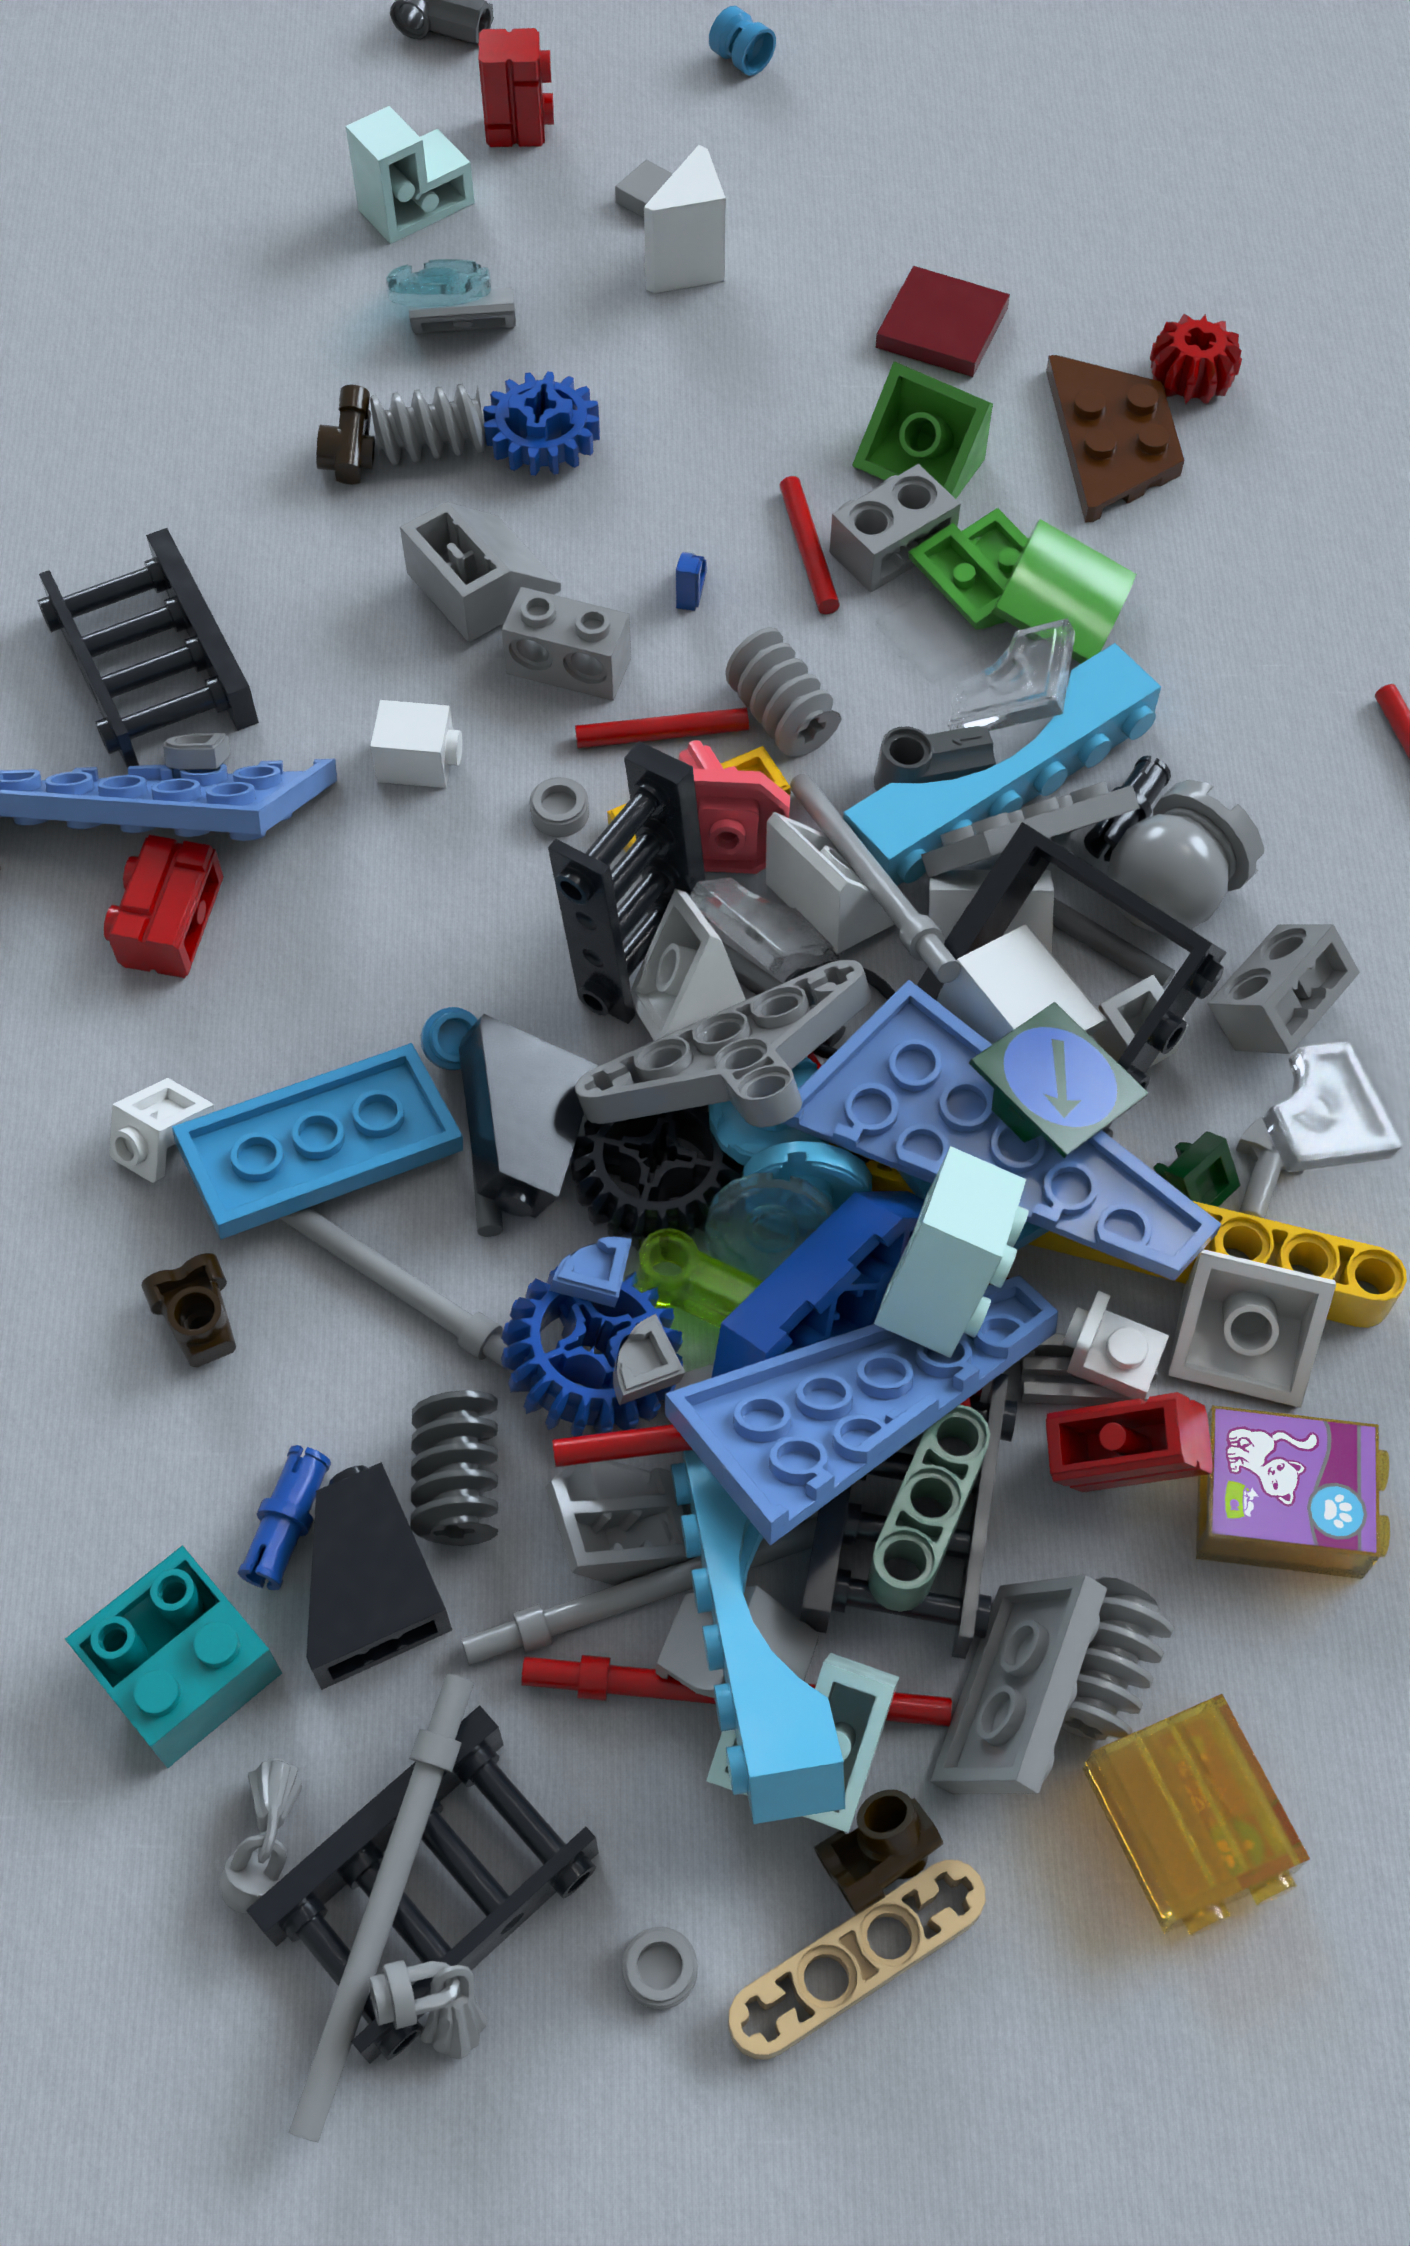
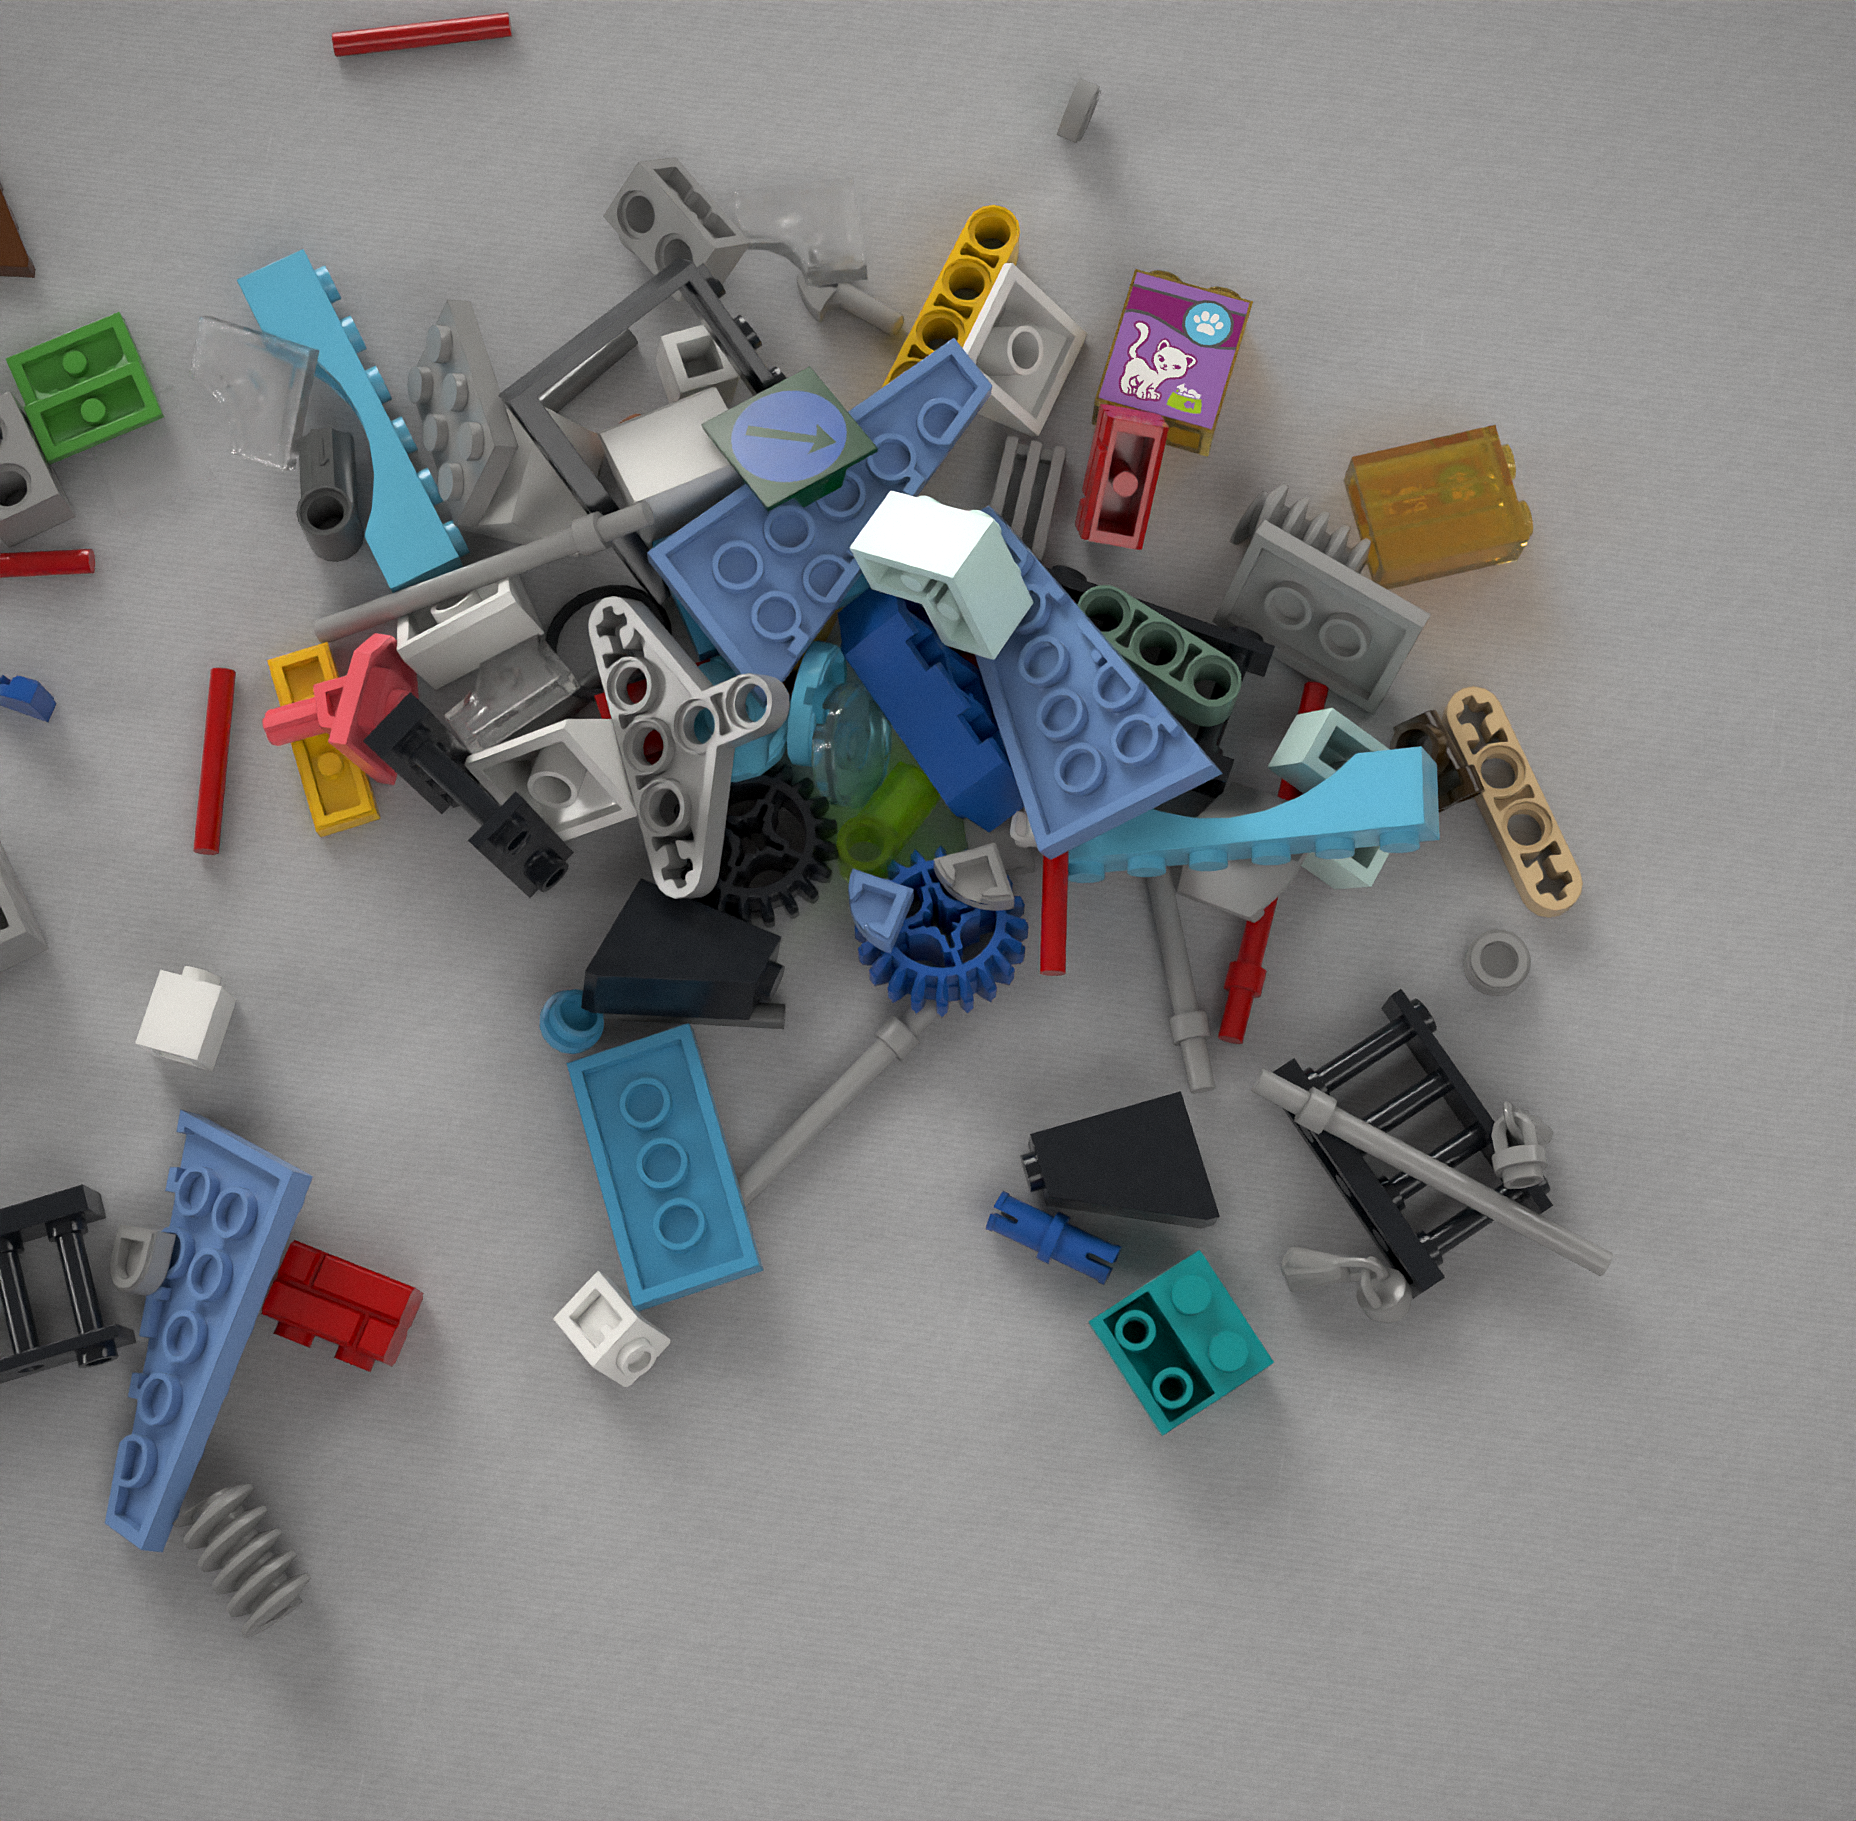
camera: 80 degrees left, 15 degrees up
(192, 1300) = (809, 1312): dark brown plate -> none
(448, 1468) = (1035, 1072): dark grey piece -> none
(559, 807) = (293, 882): light grey tile -> none
(567, 643) = (90, 838): light grey brick -> none
(617, 1520) = (1110, 933): light grey slope -> none
(782, 693) = (208, 628): light grey piece -> none
(1061, 581) = (142, 314): bright green slope -> none
(1113, 1349) = (1020, 471): white bracket -> none
(1146, 789) = (408, 306): black pin -> none
(1187, 854) = (520, 284): light grey tile -> none
(1202, 1170) = (856, 354): dark green tile -> none

